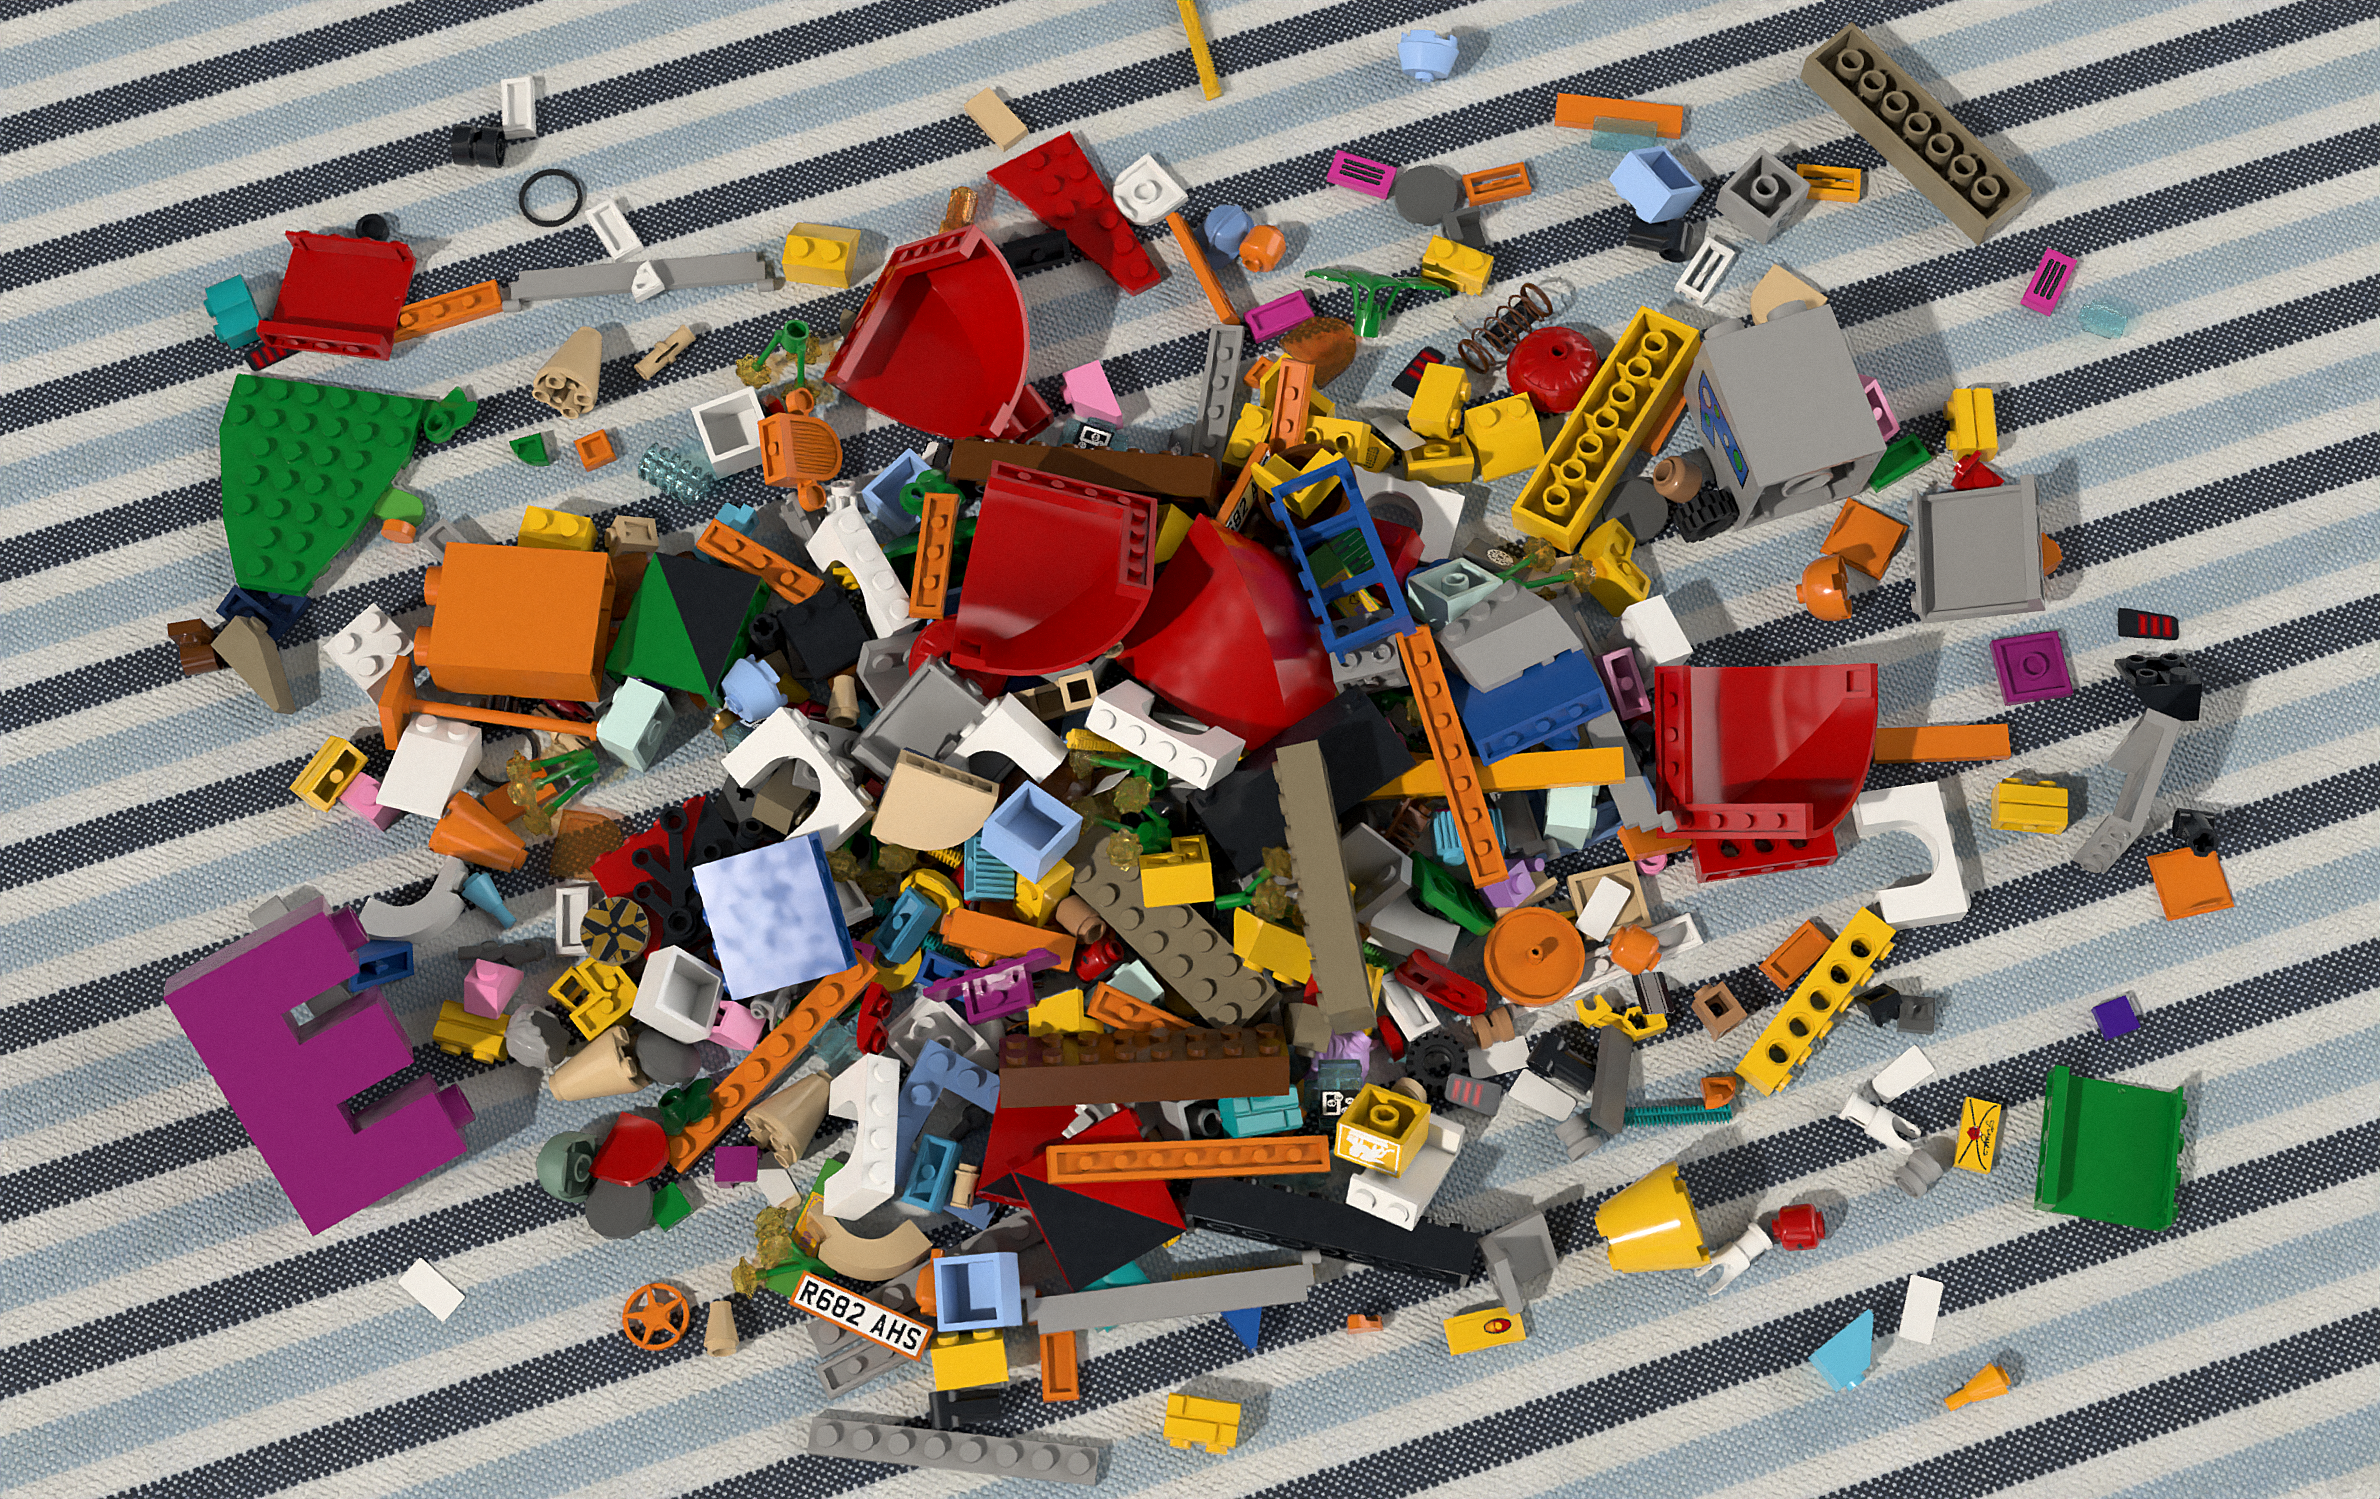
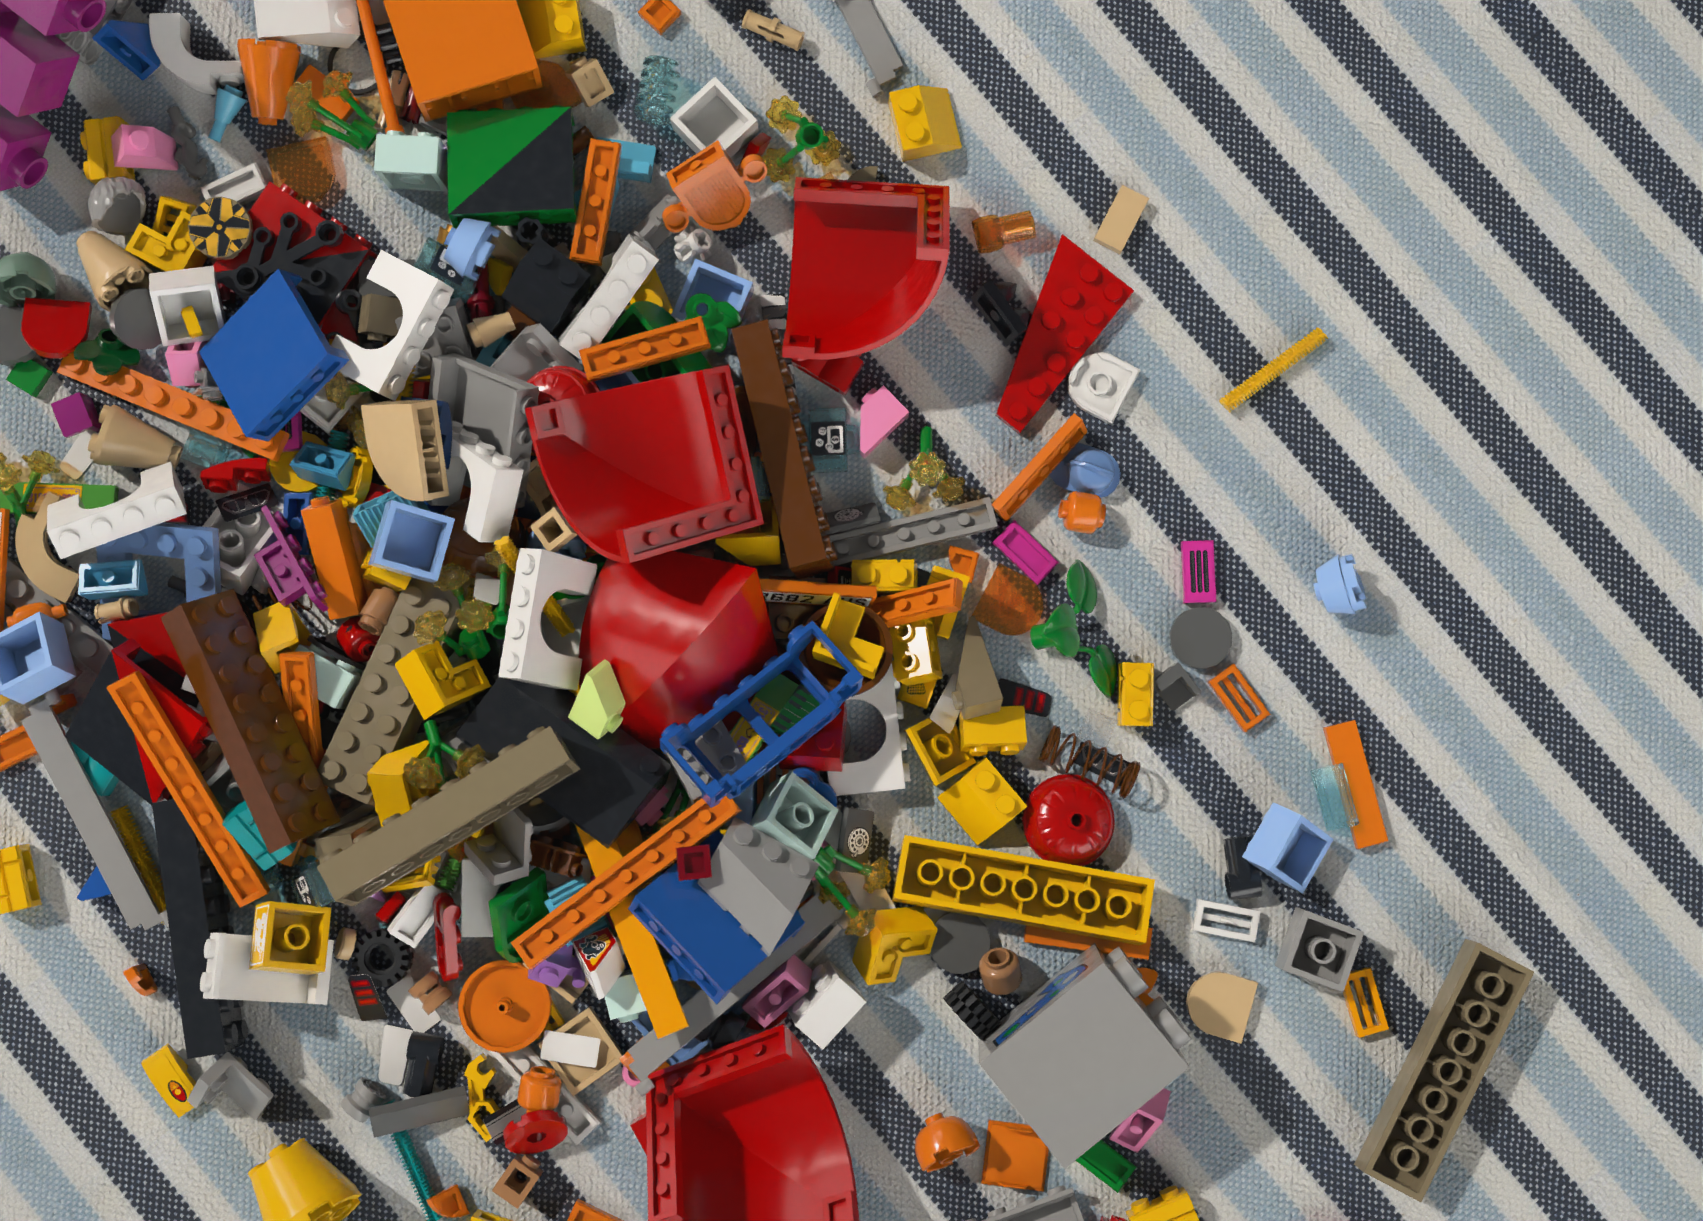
camera: 65 degrees right, 15 degrees up
(700, 994) = (191, 322): none -> yellow tile
(906, 1025) = (246, 502): none -> black sticker
(1167, 356) = (925, 470): none -> clear yellow plant
(1268, 720) = (599, 702): none -> yellowish green slope
(1384, 391) = (976, 684): none -> dark tan slope
(1463, 681) = (693, 862): none -> dark red tile
(1524, 820) = (600, 959): none -> slope
(1676, 967) = (535, 1132): none -> red tile

